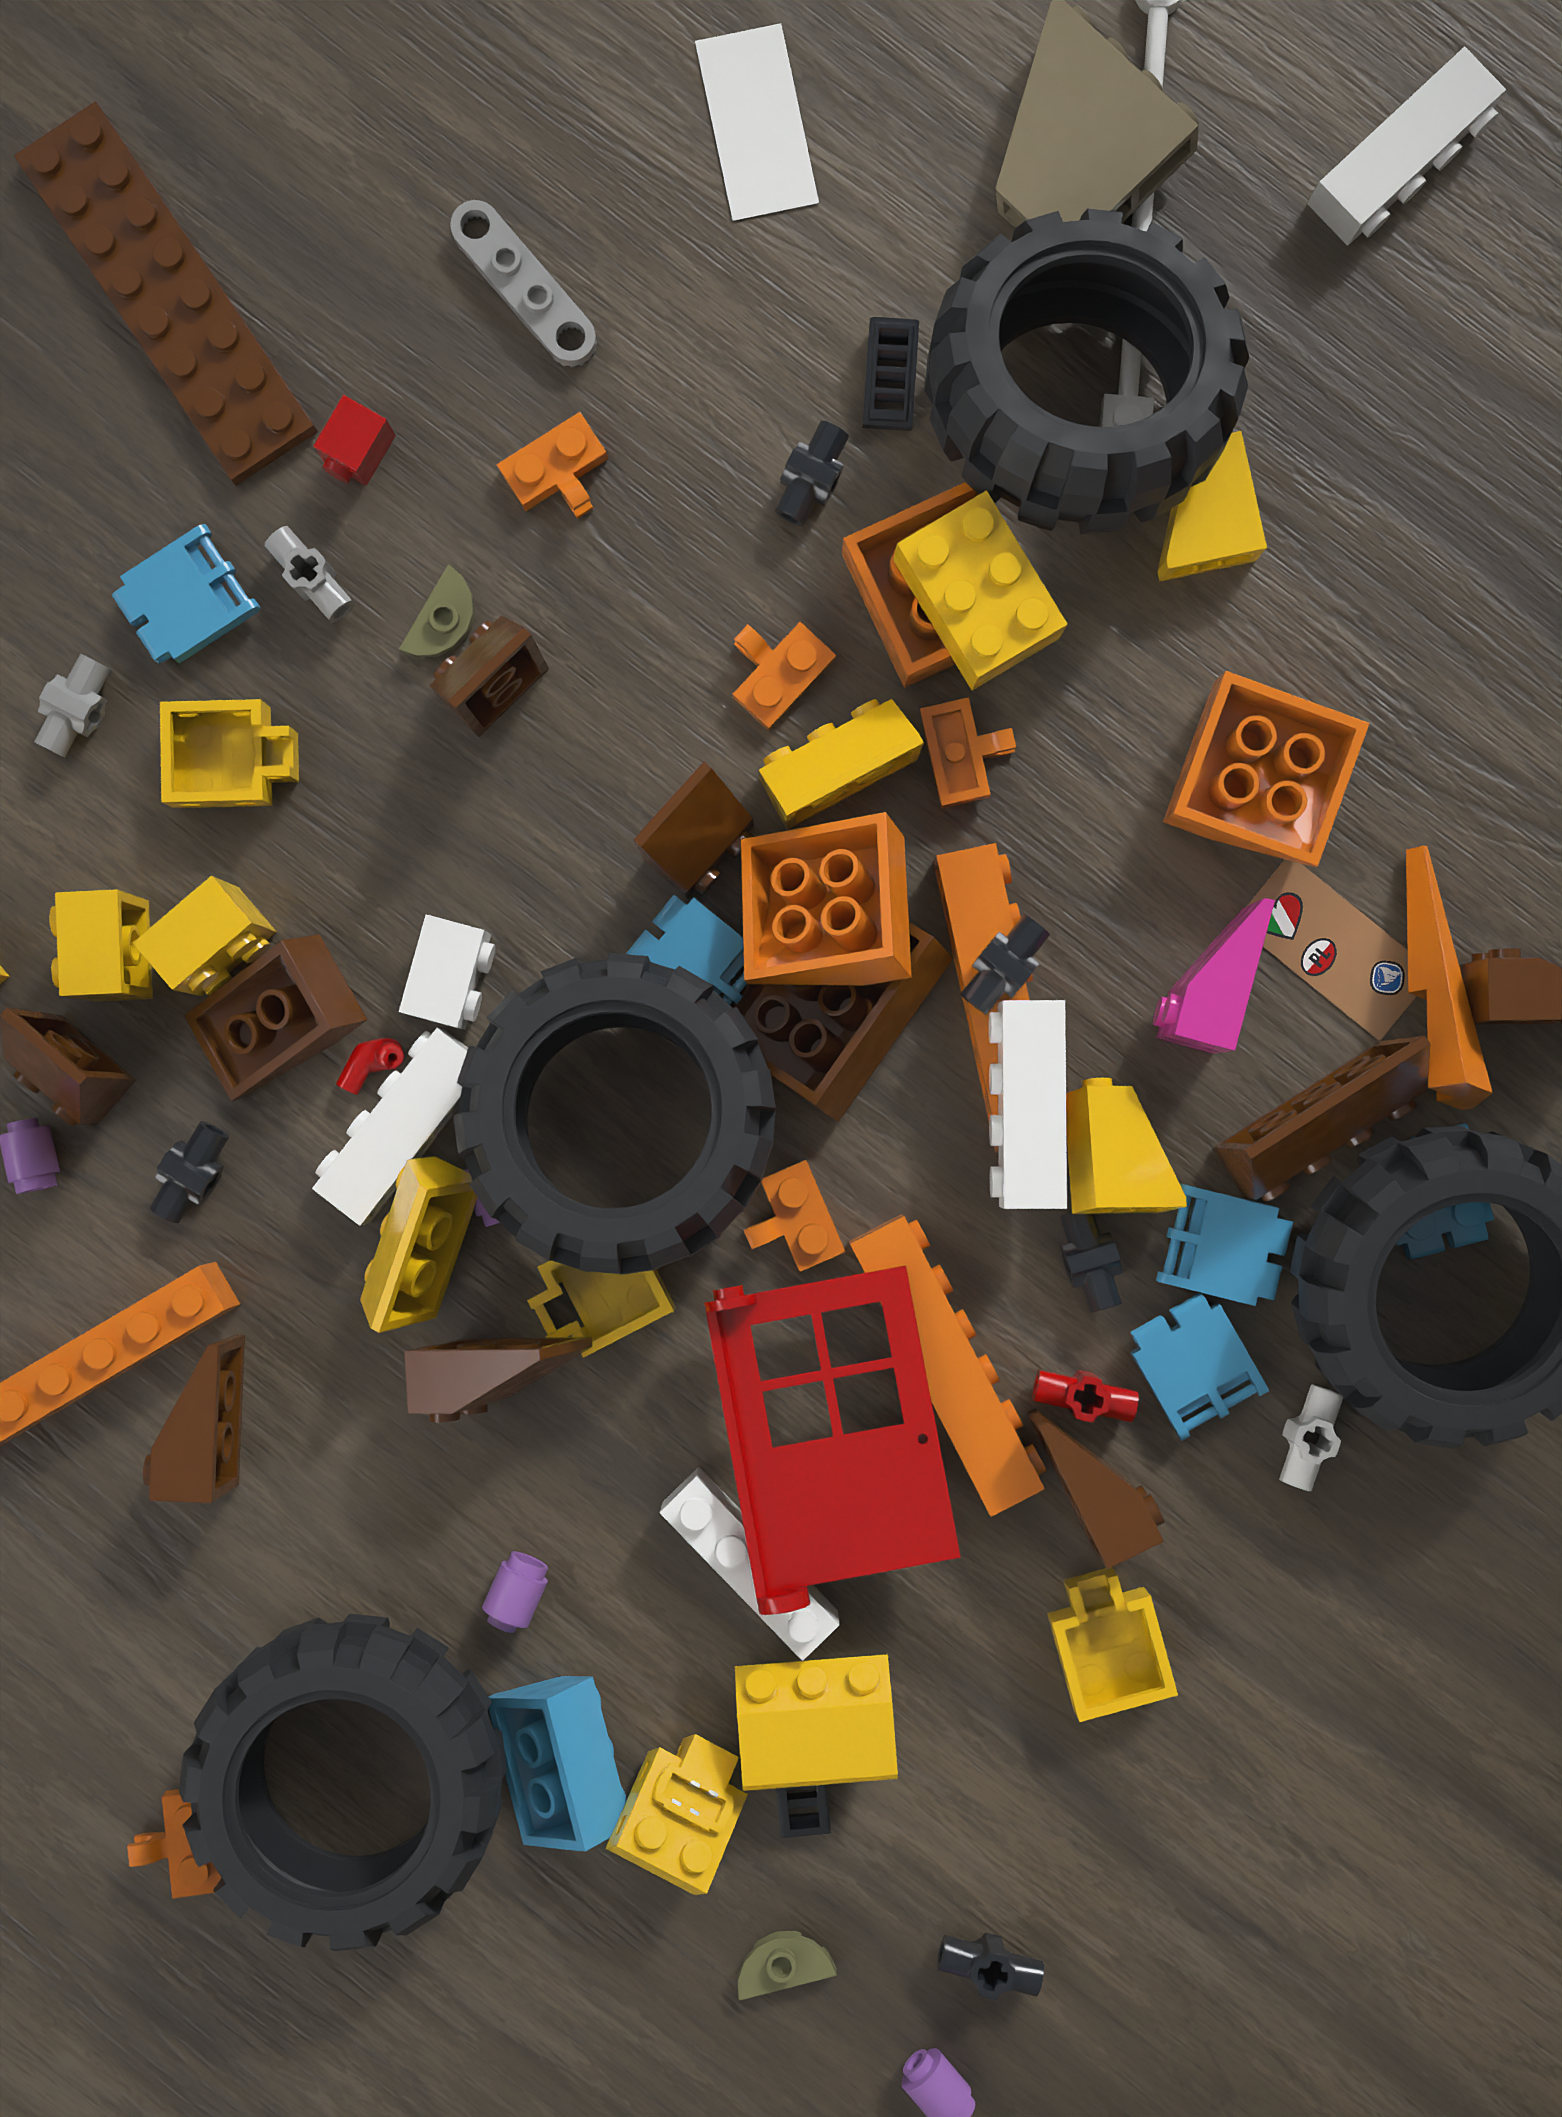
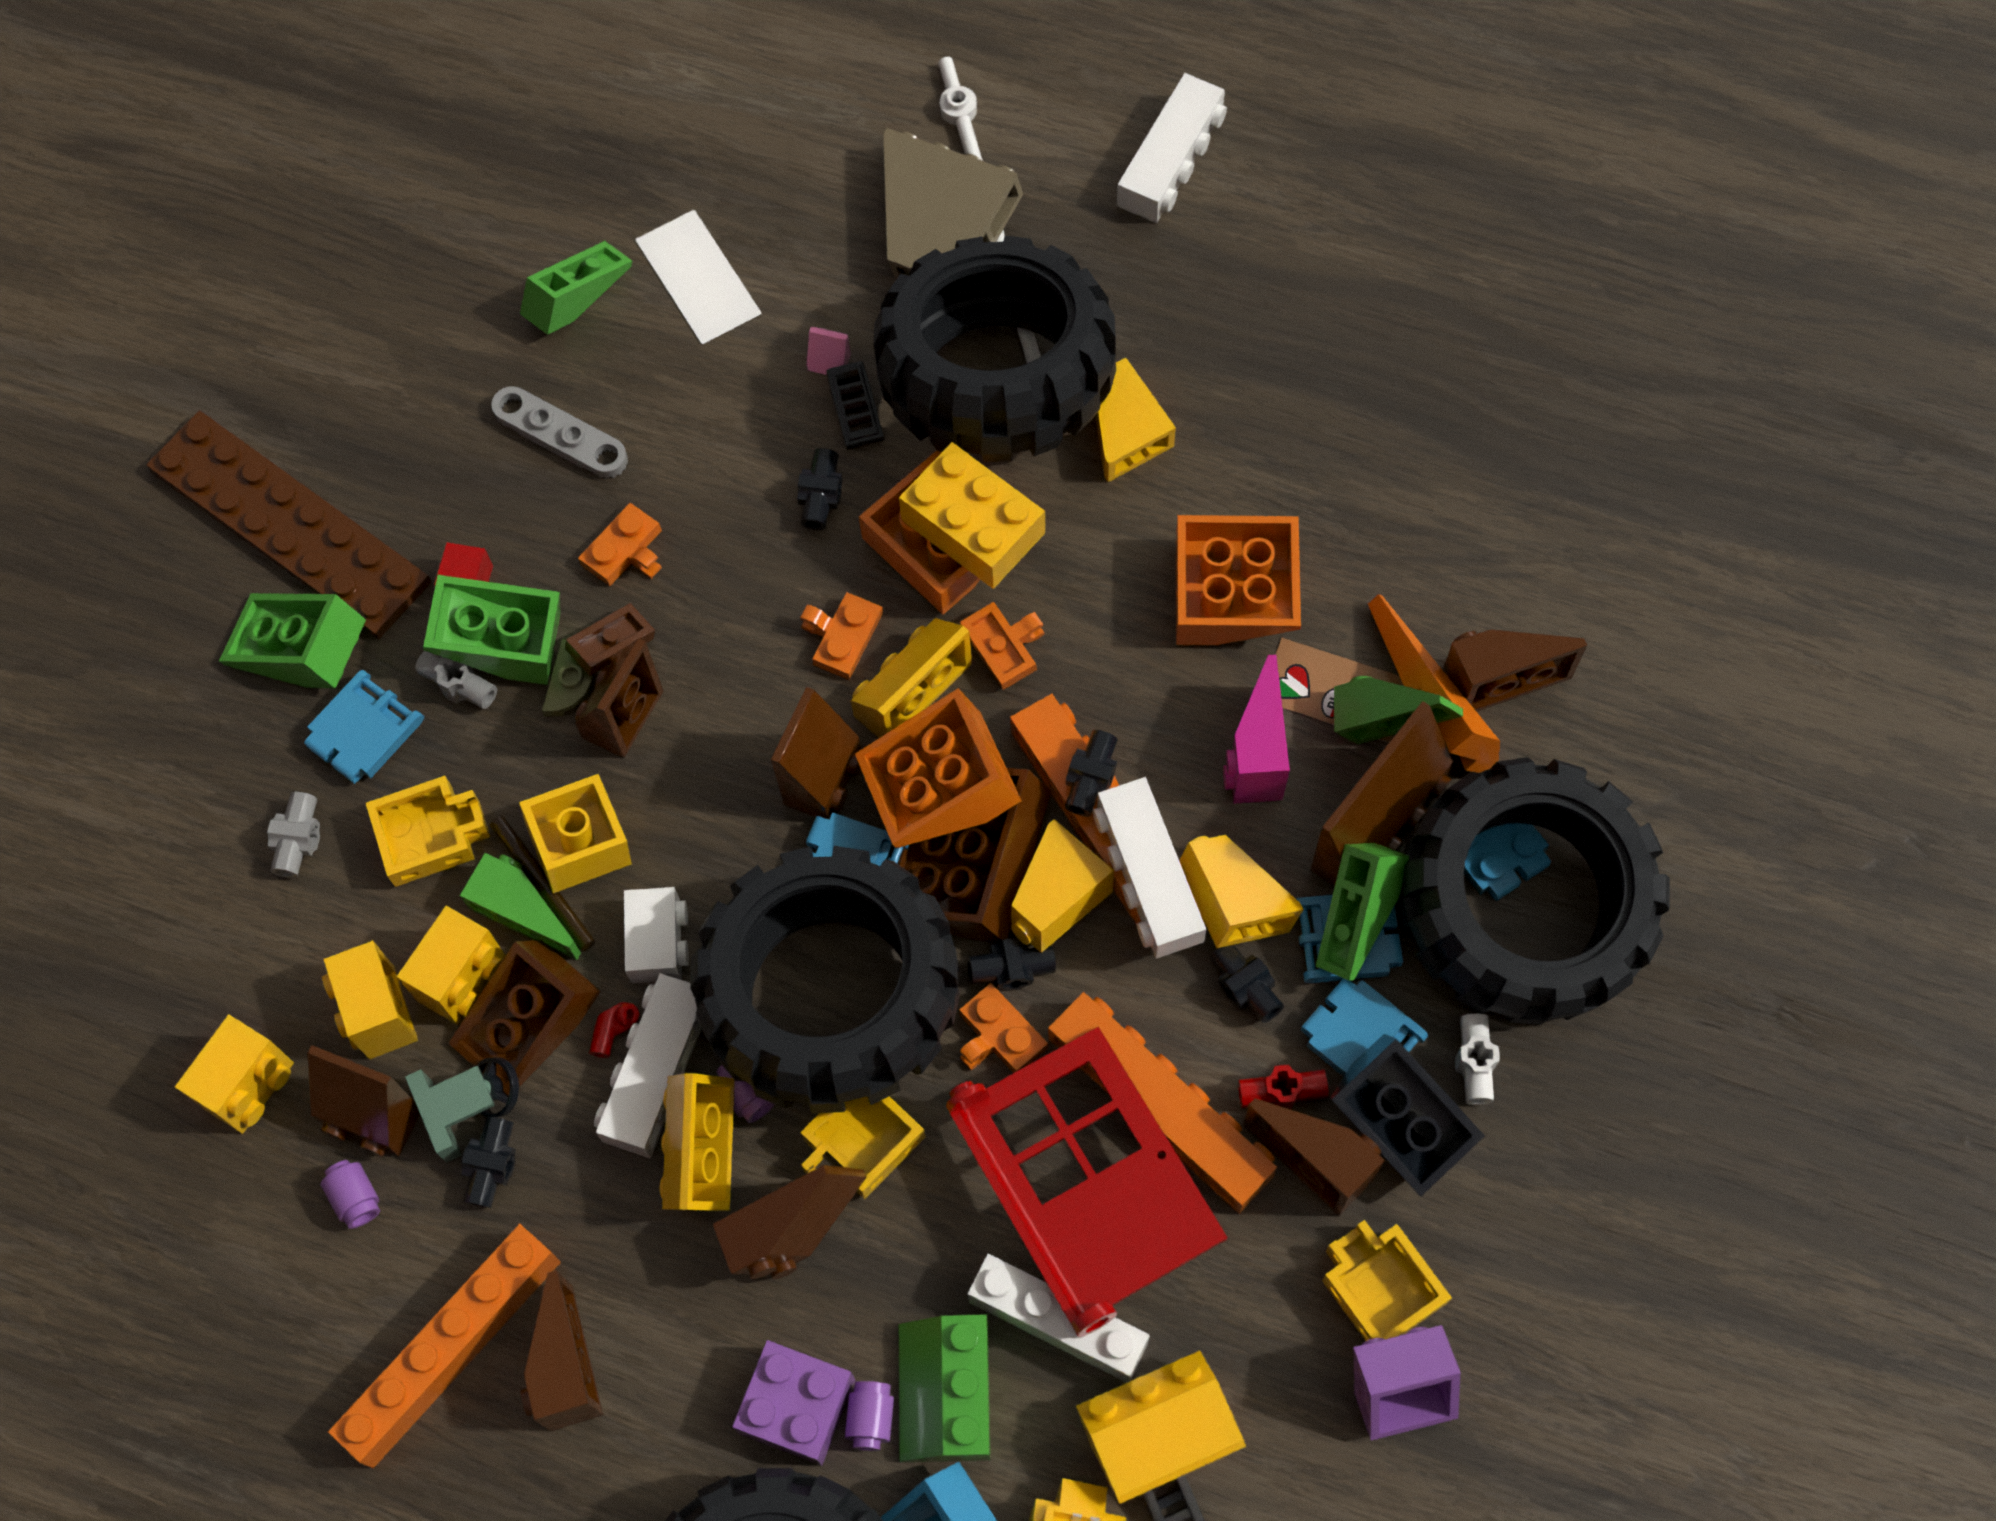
camera: 20 degrees left, 20 degrees down
(133, 454) = (294, 638): none -> bright green slope
(175, 1094) = (460, 1099): none -> sand green piece
(303, 878) = (507, 897): none -> bright green slope
(340, 861) = (539, 880): none -> dark brown bar
(366, 529) = (494, 627): none -> bright green slope
(390, 821) = (575, 833): none -> yellow brick
(439, 1554) = (794, 1402): none -> medium lavender piece
(502, 587) = (603, 640): none -> reddish brown plate
(595, 84) = (571, 286): none -> bright green slope
(603, 1593) = (944, 1389): none -> bright green slope
(836, 1147) = (1010, 965): none -> black axle
(881, 288) = (827, 350): none -> bright pink slope
(919, 1081) = (1058, 888): none -> yellow slope
(1094, 1767) = (1406, 1382): none -> medium lavender piece
(1206, 1482) = (1405, 1114): none -> black slope
(1252, 1233) = (1360, 905): none -> bright green slope
(1366, 995) = (1378, 709): none -> bright green slope

